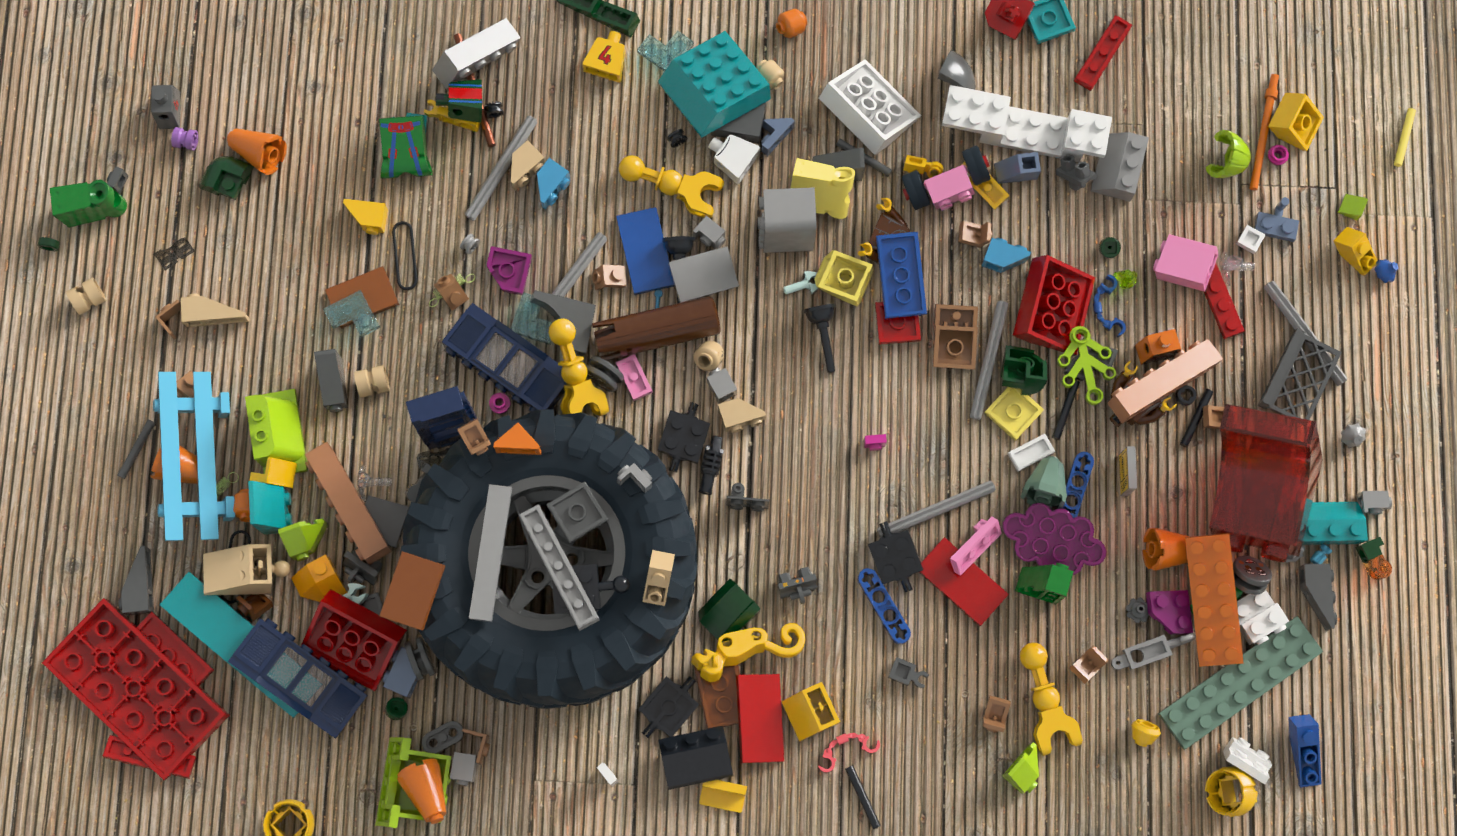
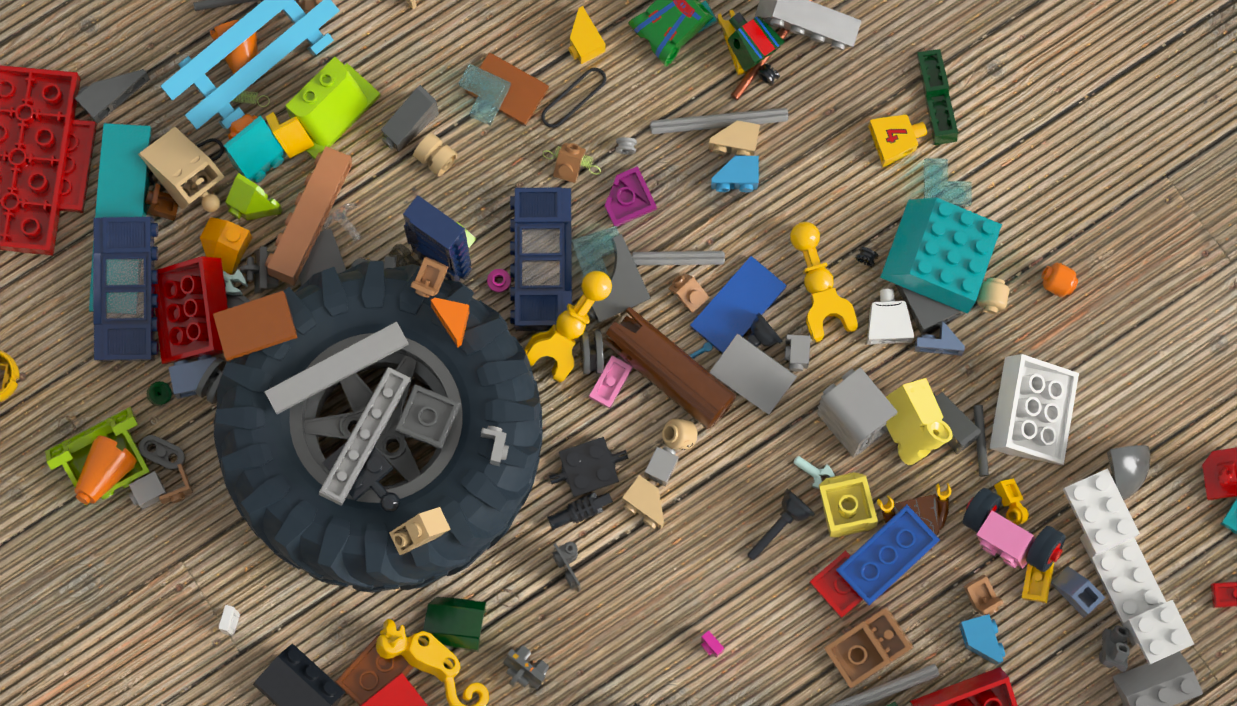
camera: 55 degrees right, 0 degrees up
(668, 707) = (330, 632): black plate -> none

